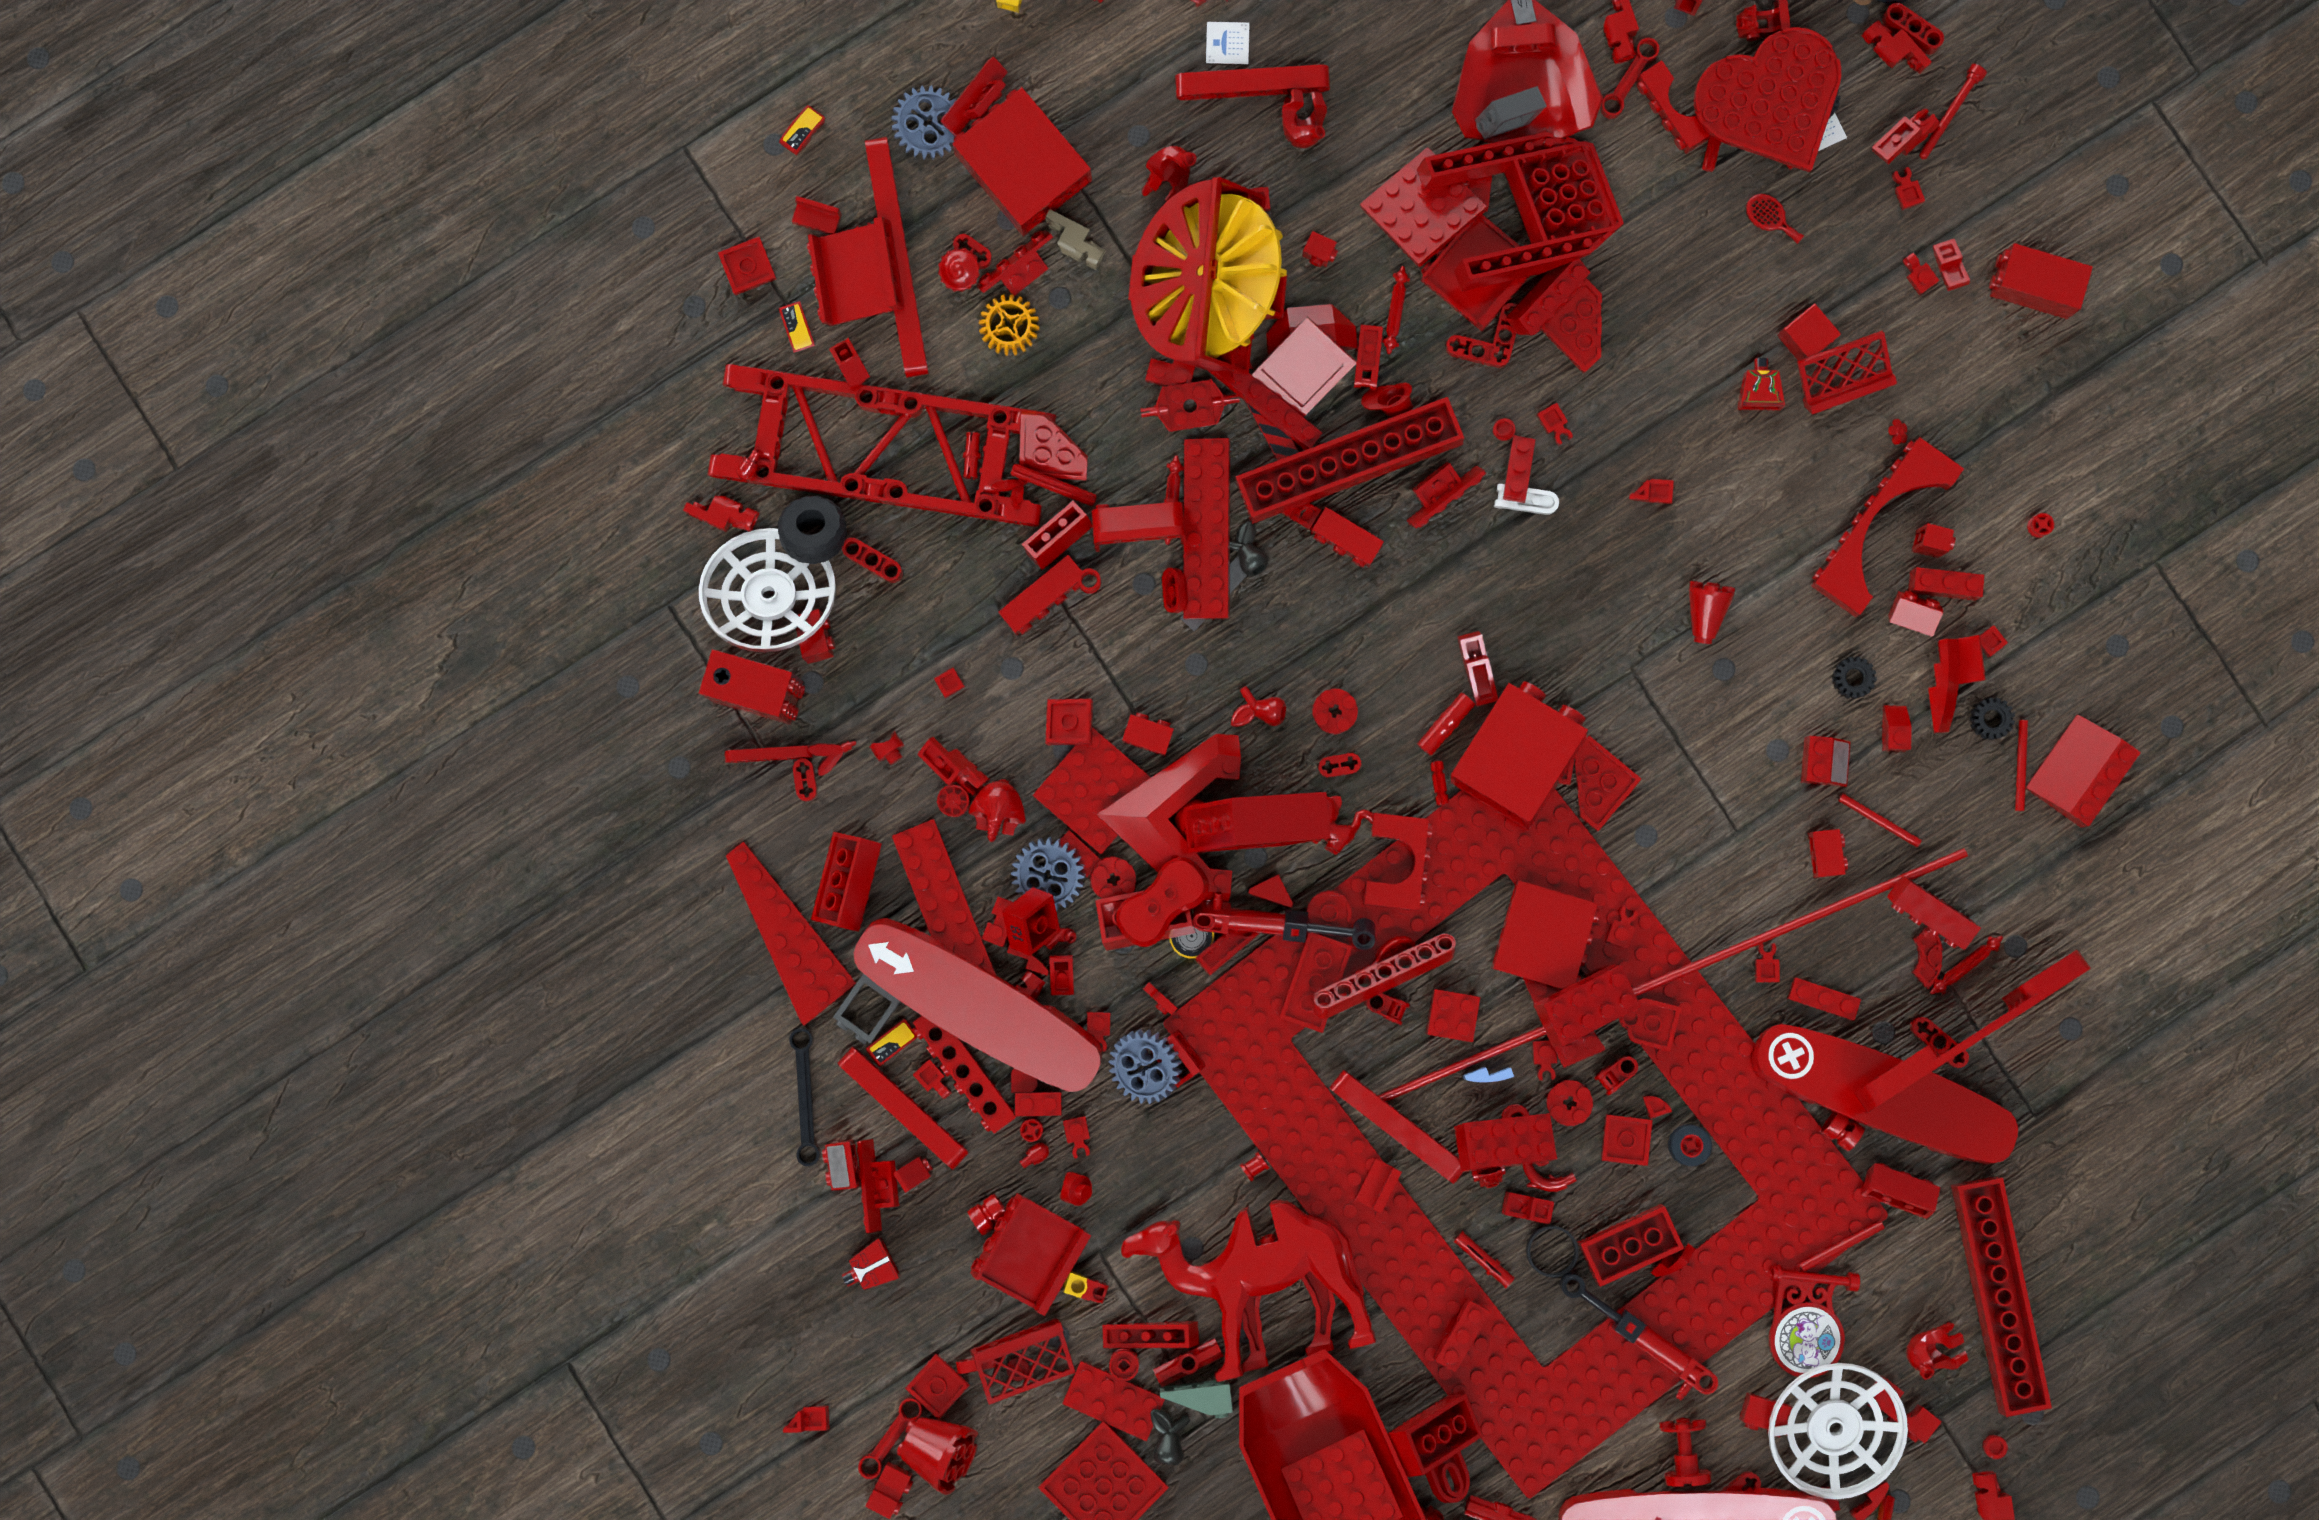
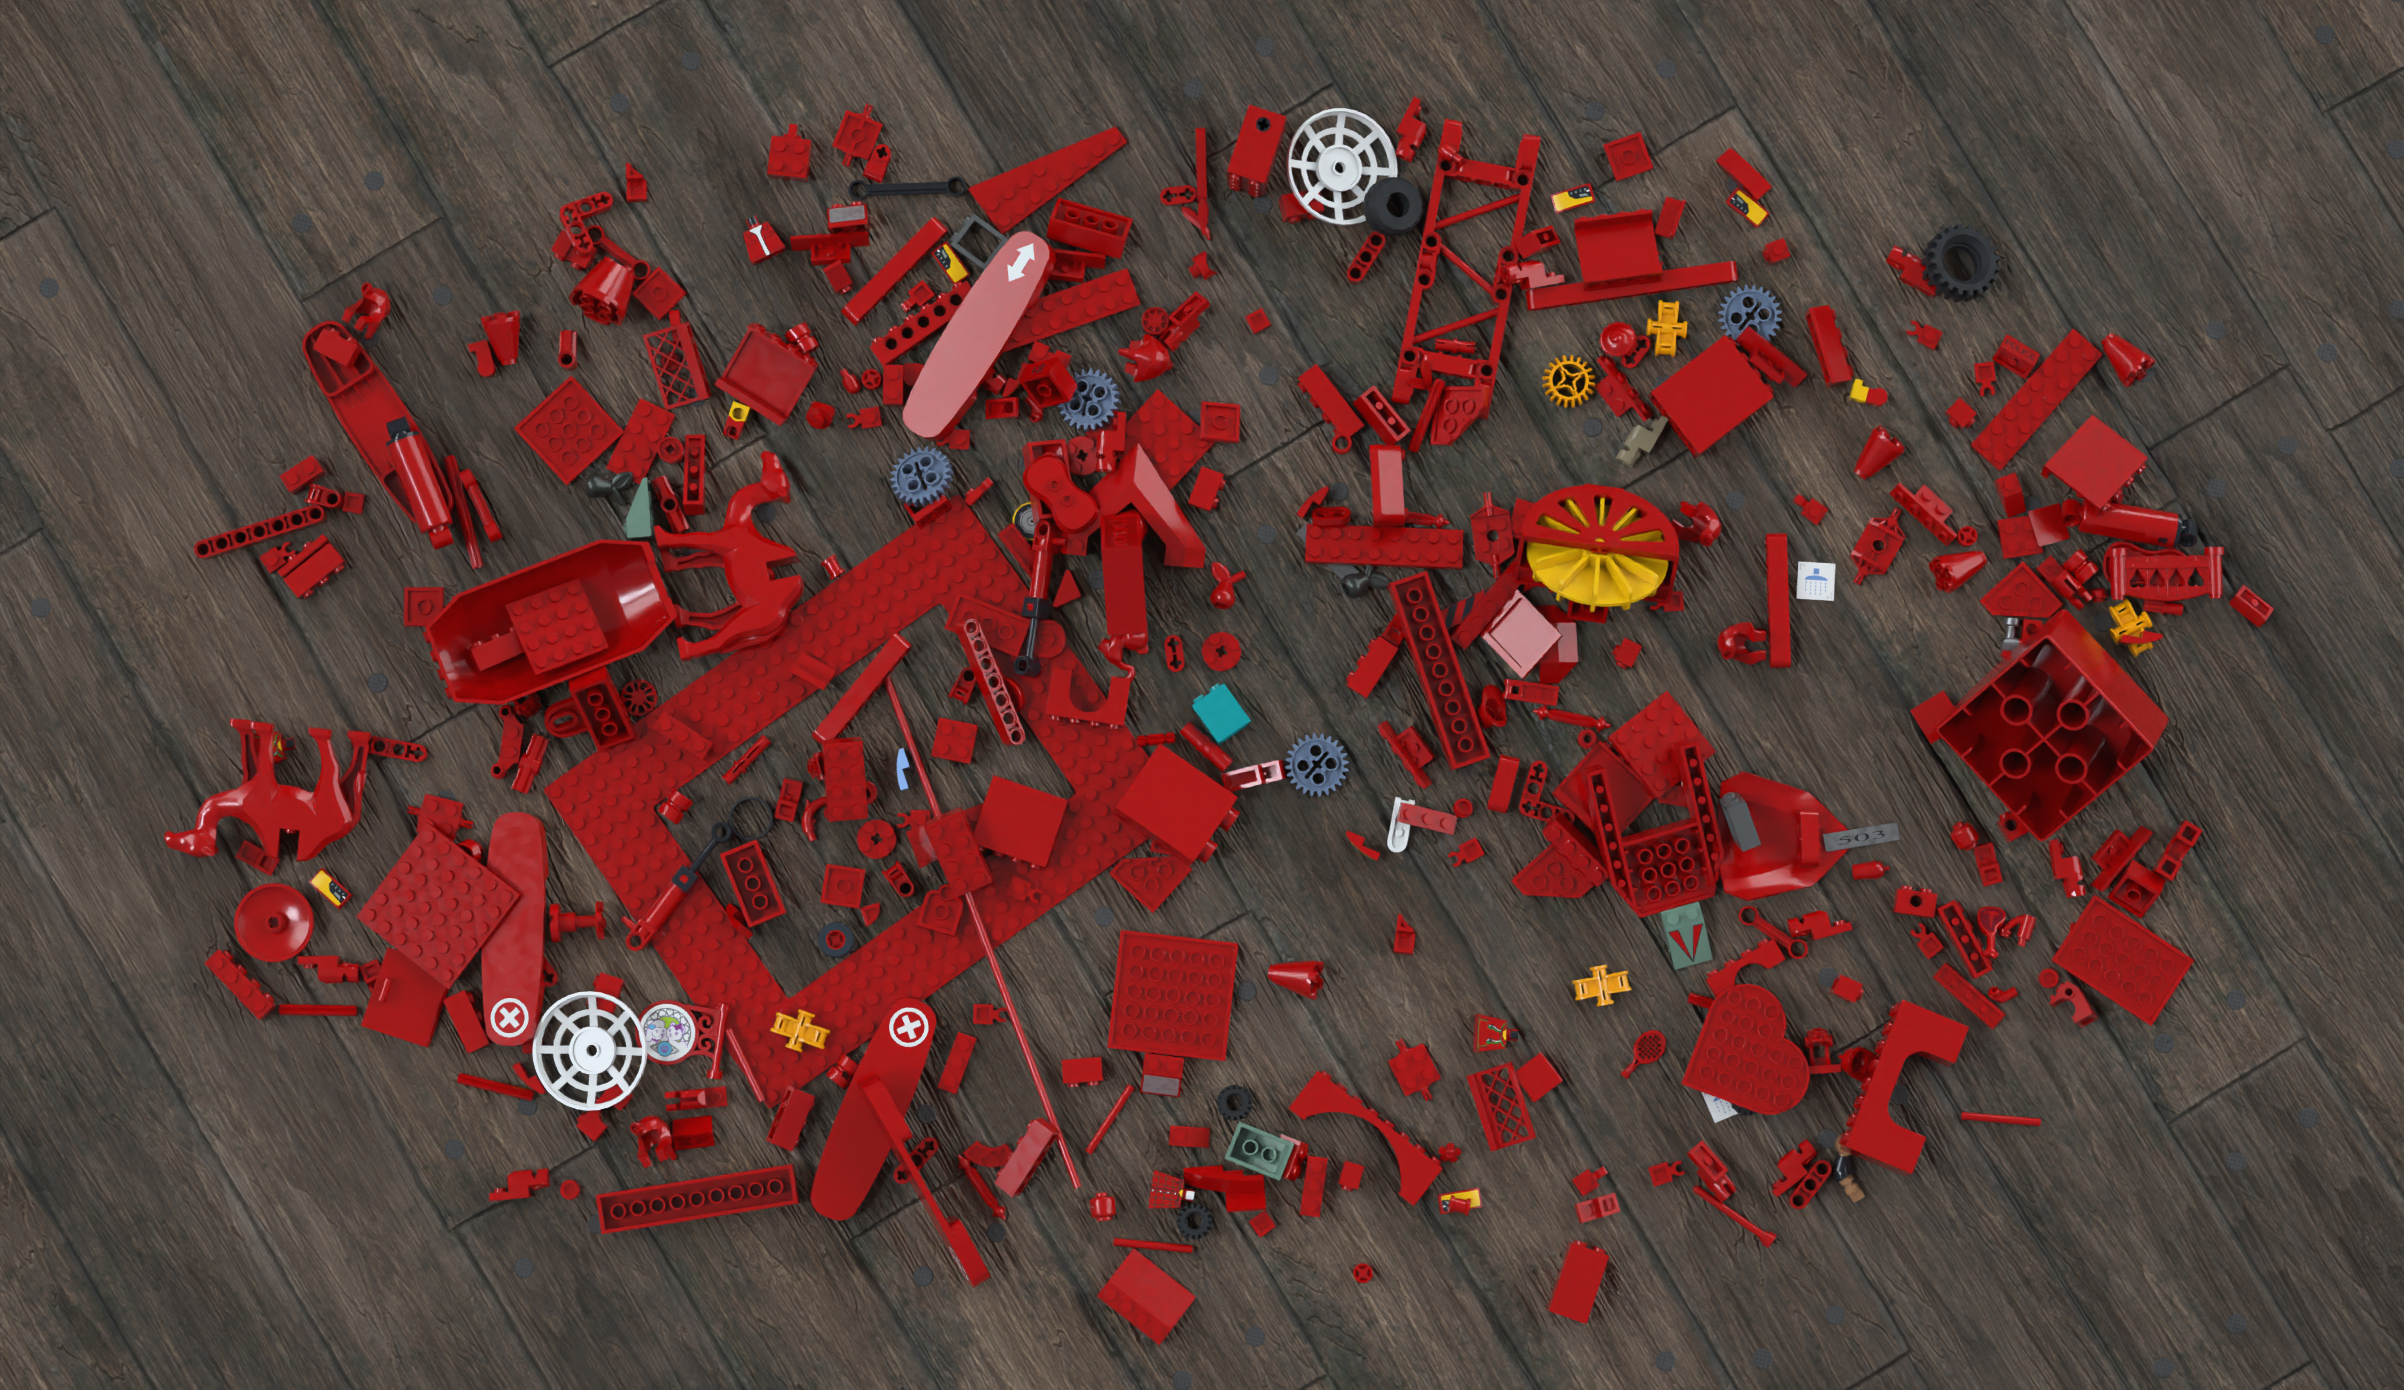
camera: 90 degrees right, 0 degrees up
(743, 1158) = (857, 135): none -> red plate
(764, 134) = (1743, 174): none -> red slope
(770, 1237) = (789, 156): none -> red hinge
(779, 1134) = (877, 166): none -> red piece
(847, 1487) = (578, 215): none -> red beam
(852, 94) = (1776, 252): none -> red brick
(888, 370) = (1529, 275): none -> plate
(889, 899) = (1072, 264): none -> red bracket
(950, 218) = (1666, 328): none -> light orange axle
(960, 33) = (1828, 345): none -> red slope
(1005, 1492) = (568, 348): none -> red piece
(1099, 845) = (1111, 443): none -> red plate
(1146, 48) = (1811, 510): none -> red plate
(1154, 606) = (1317, 499): none -> red slope
(1408, 708) = (1220, 713): none -> teal slope
(1415, 1390) = (639, 697): none -> red wheel
(1418, 285) = (1592, 734): none -> red plate
(1474, 384) = (1503, 784): none -> red beam
(1474, 581) = (1330, 776): none -> sand blue gear
(1546, 1343) = (675, 806): none -> red wheel
(1549, 545) = (1357, 841): none -> red slope
(1638, 173) = (1686, 935): none -> sand green slope
(1699, 266) = (1608, 984): none -> light orange axle
(1734, 752) = (1172, 995): none -> red plate
(1797, 1190) = (793, 1028): none -> light orange axle
(1805, 475) = (1413, 1069): none -> red plate
(1883, 1301) = (698, 1098): none -> red plate
(1911, 645) = (1259, 1151): none -> sand green slope
(1921, 1304) = (693, 1132): none -> red panel
(1952, 418) = (1473, 1194): none -> slope
(1961, 416) = (1459, 1205): none -> red bush
(1961, 749) = (1168, 1191): none -> red torso
(1983, 824) = (1102, 1207): none -> red head

